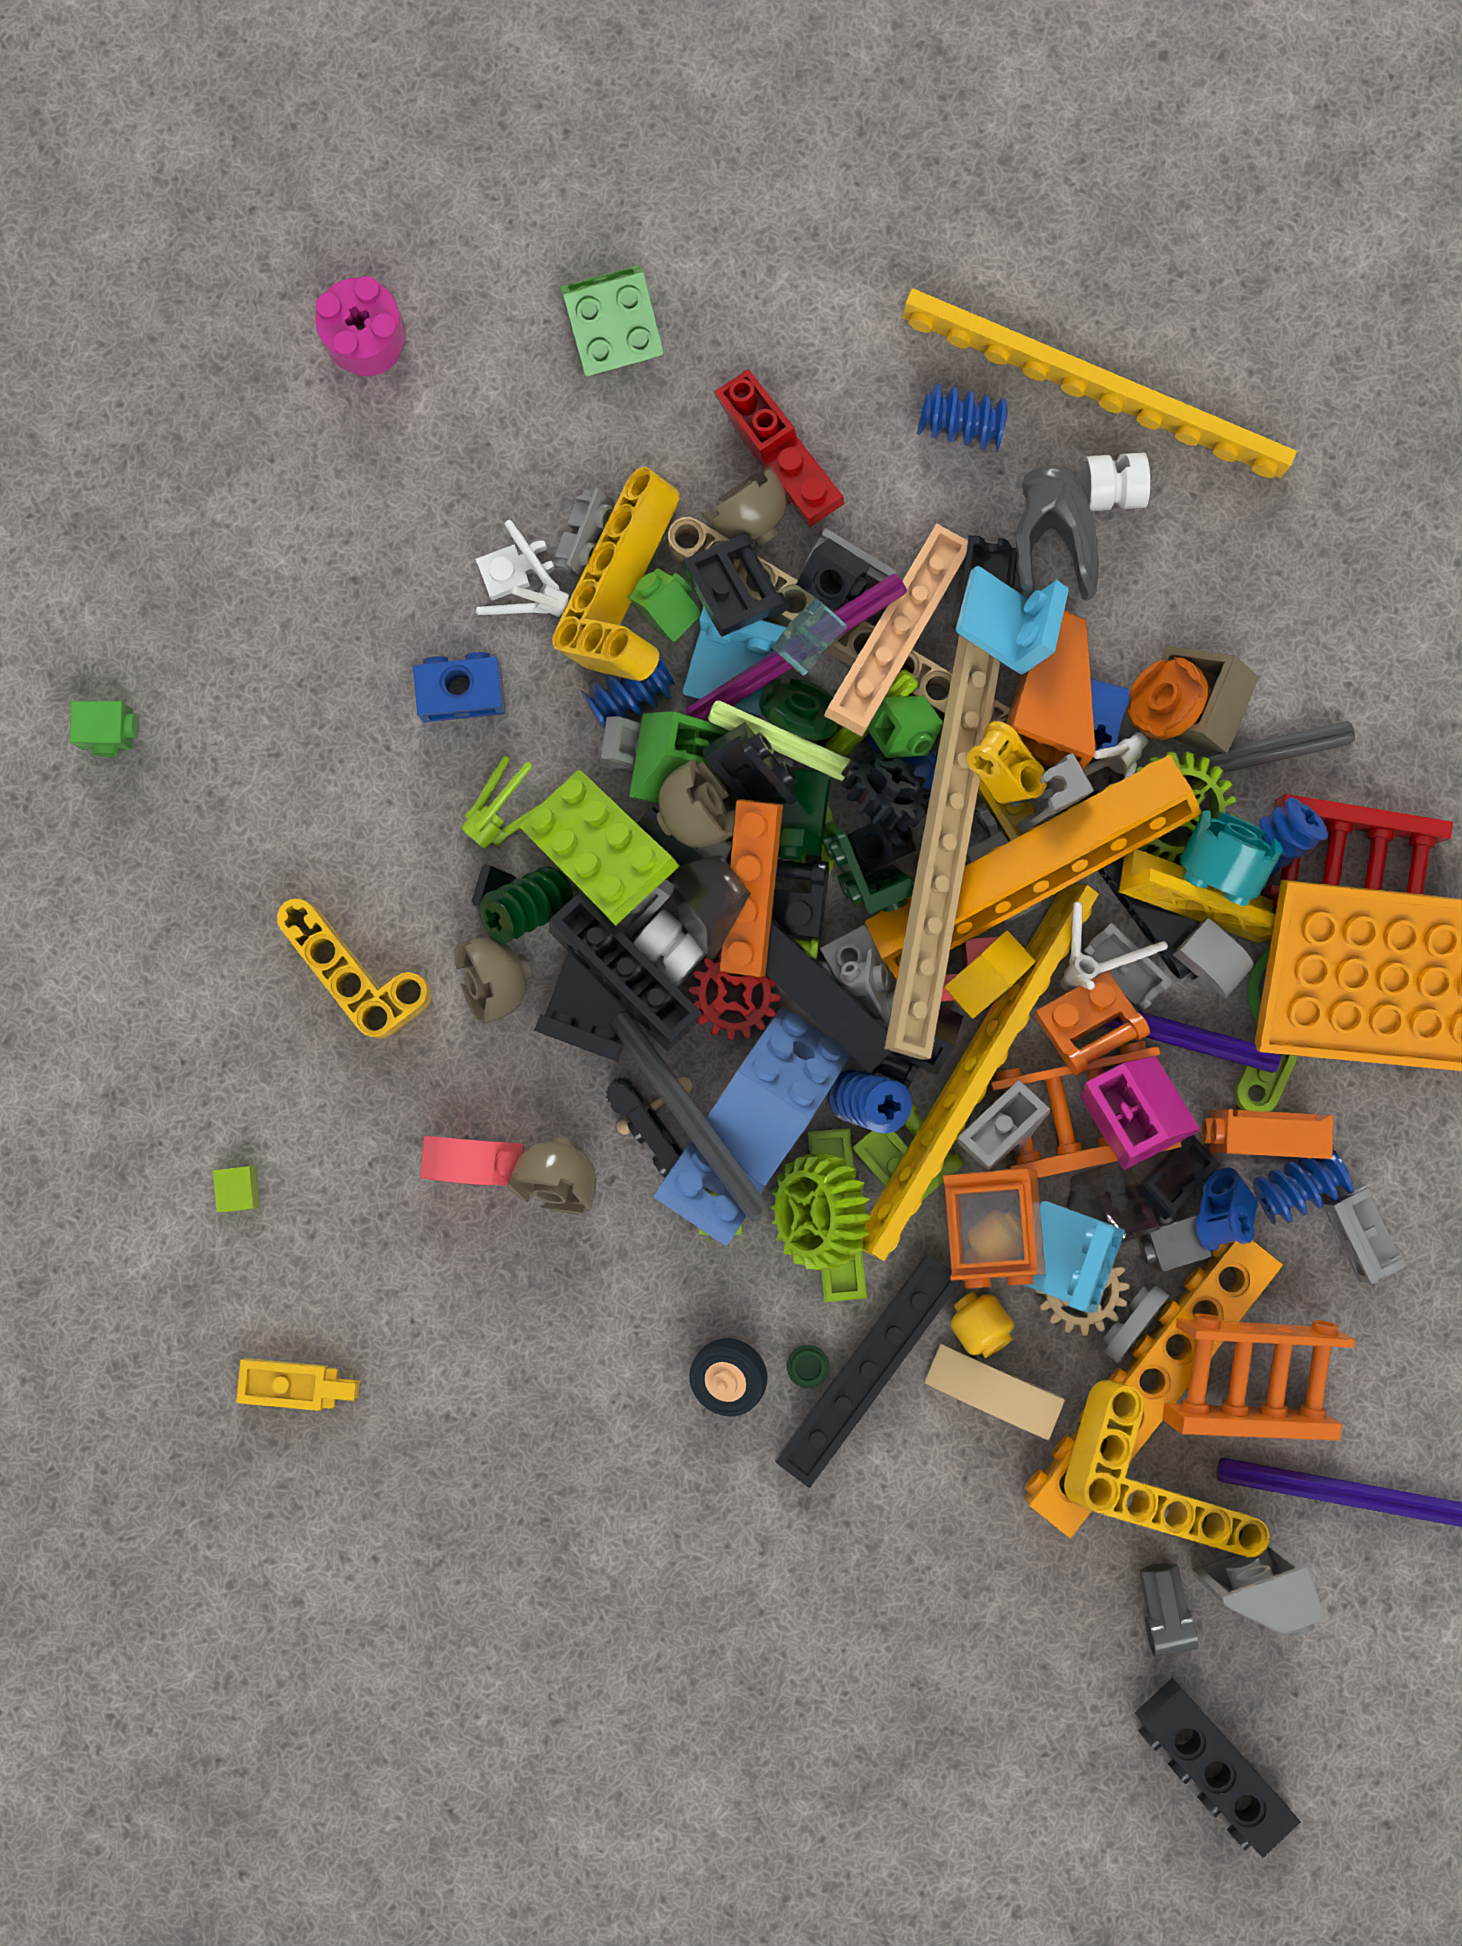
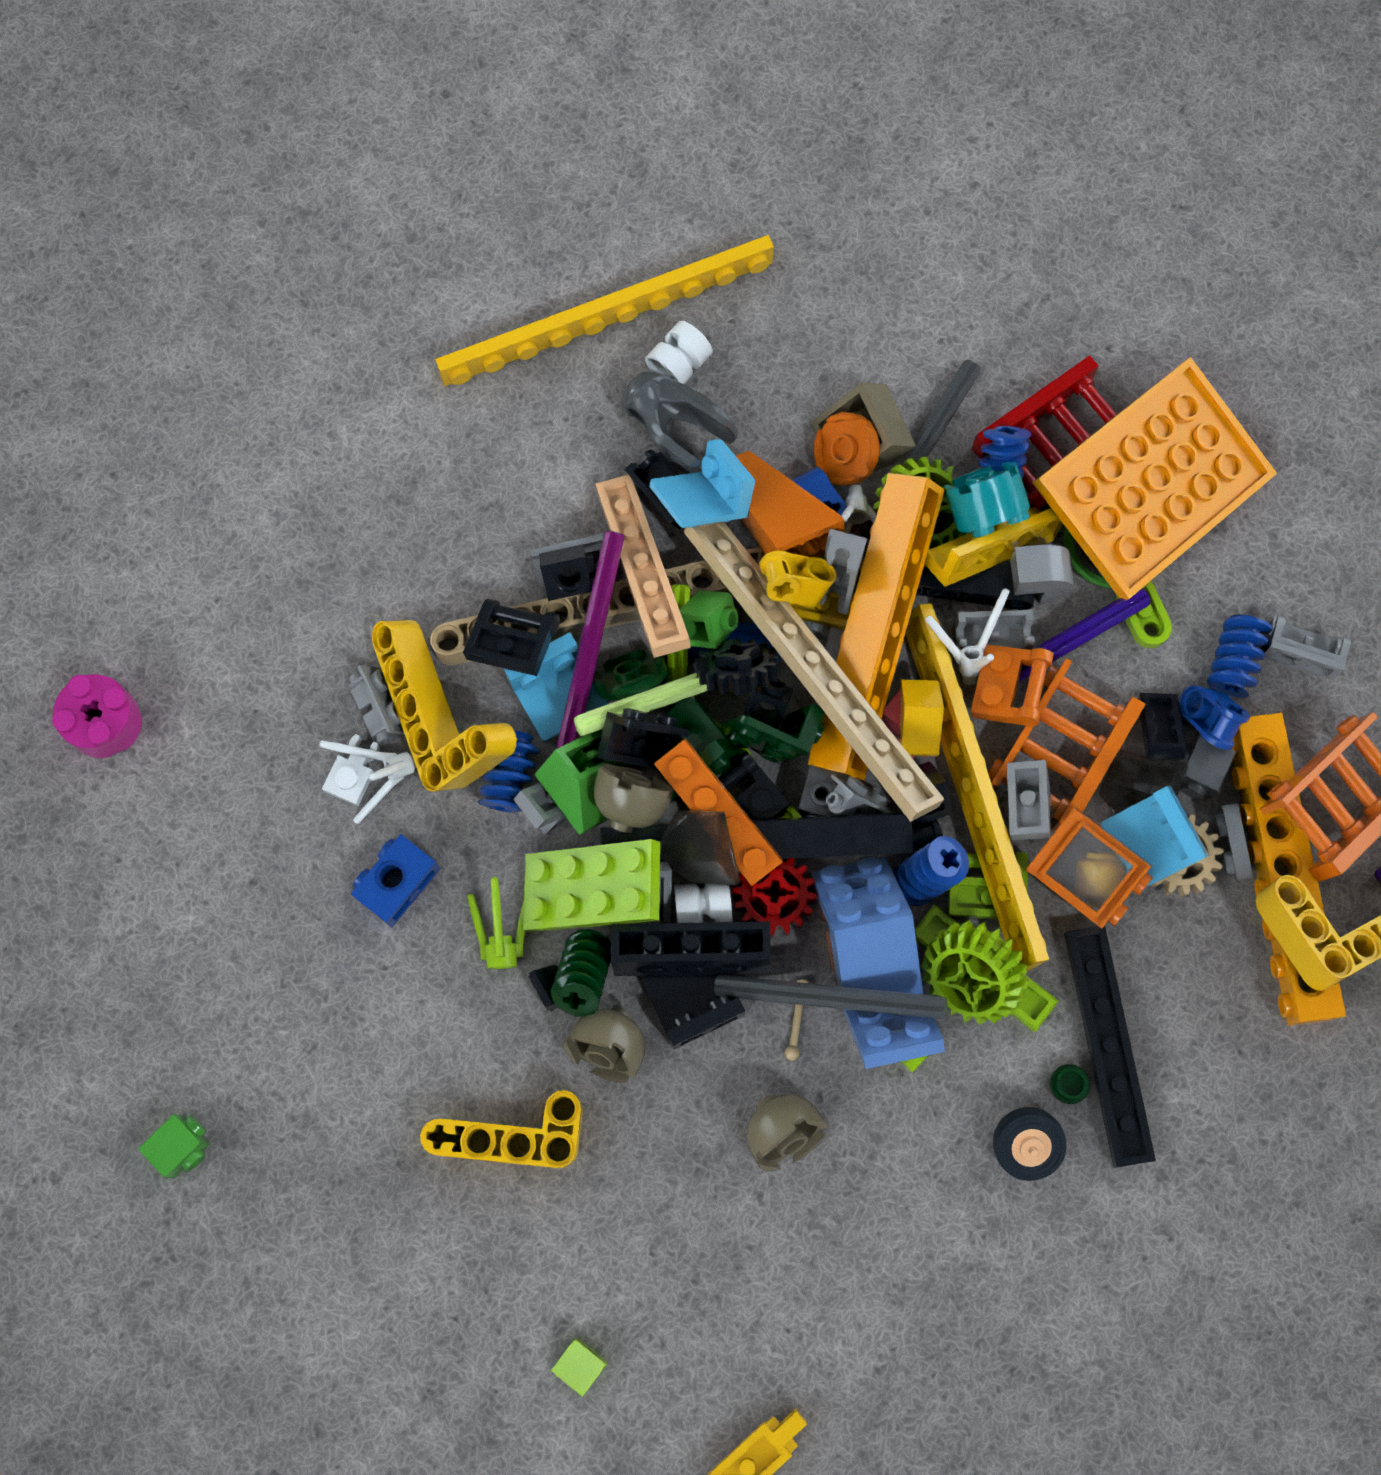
camera: 45 degrees left, 10 degrees down
(468, 1160) = (716, 1179): coral brick -> none
(612, 320) = (261, 556): bracket -> none
(644, 1123) = (806, 1035): black hinge -> none
(665, 603) = (476, 695): bright green brick -> none
(750, 508) = (469, 584): dark tan cylinder -> none
(775, 444) = (449, 535): red slope -> none
(809, 636) = (592, 621): clear light blue panel -> none
(963, 417) = (545, 404): blue piece -> none
(982, 1324) = (1146, 941): yellow head -> none
(994, 1391) = (1199, 974): tan slope -> none
(1138, 1110) = (1097, 708): dark pink slope -> none
(1268, 1133) = (1187, 642): orange window -> none

